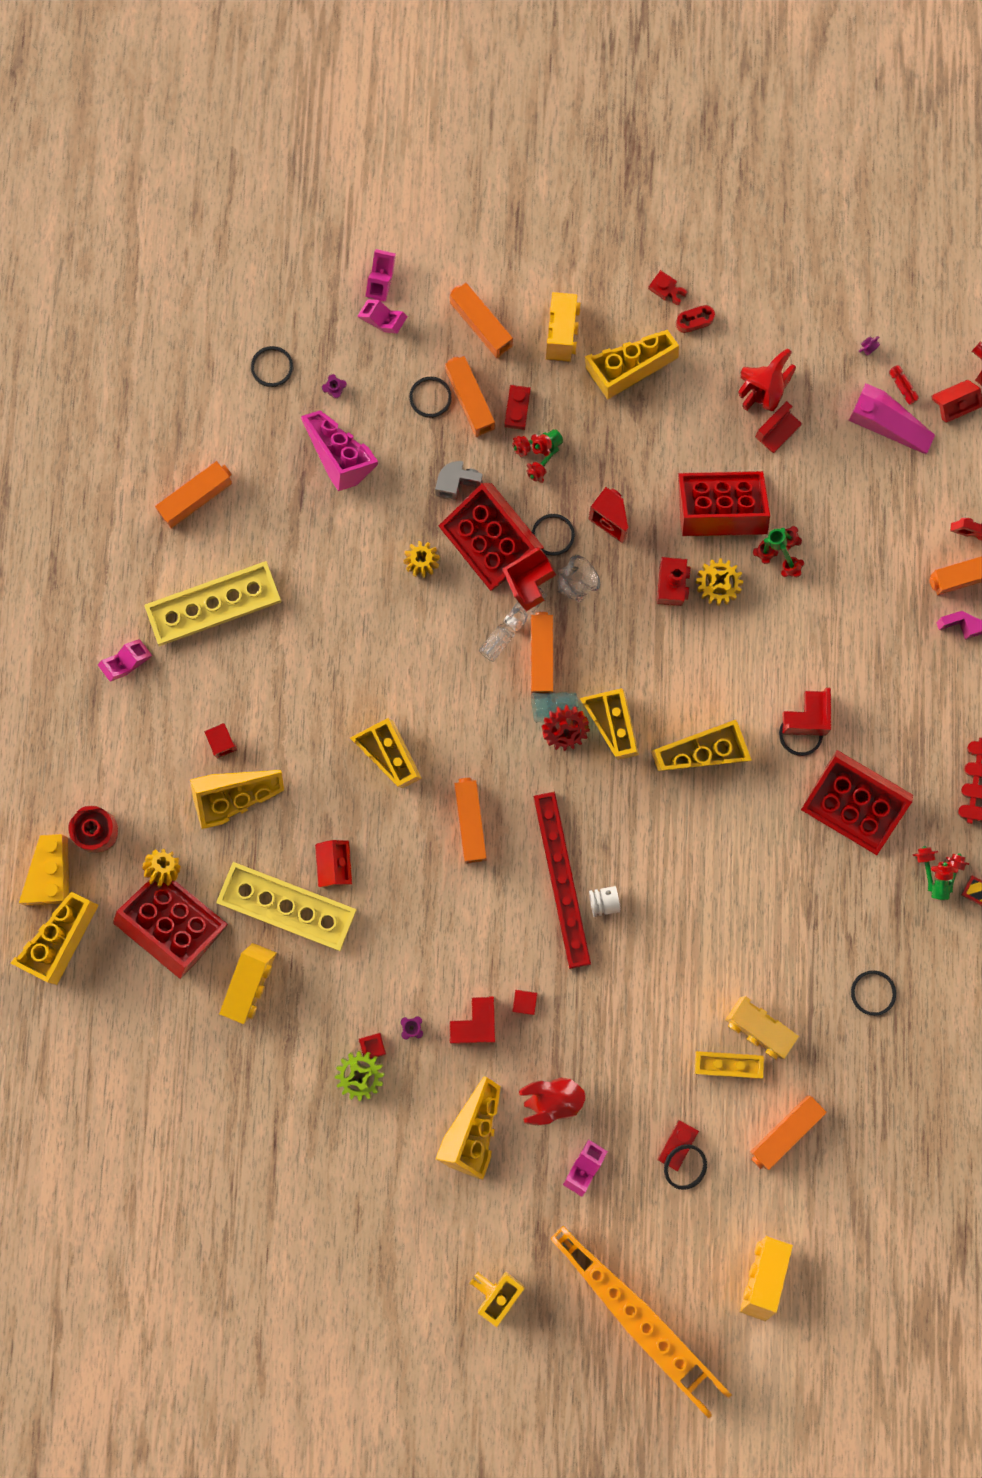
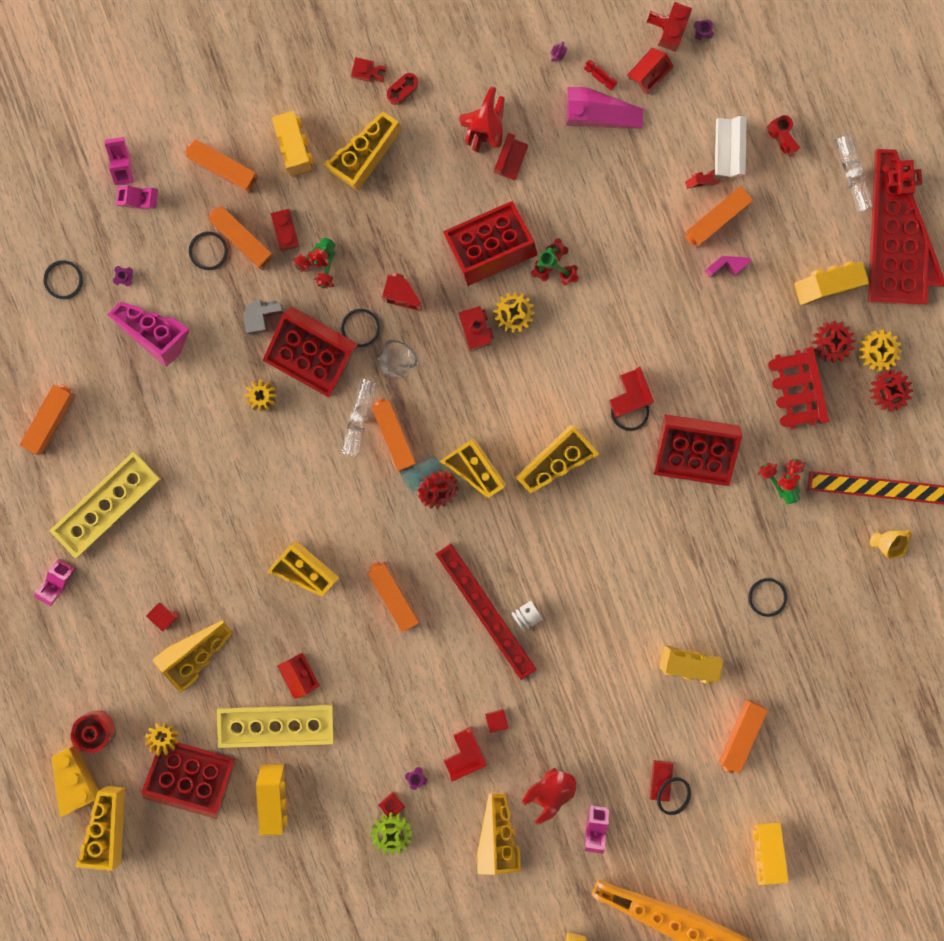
camera: 20 degrees left, 10 degrees up
(526, 575) = (353, 377): red panel -> none
(729, 1064) = (676, 702): yellow plate -> none

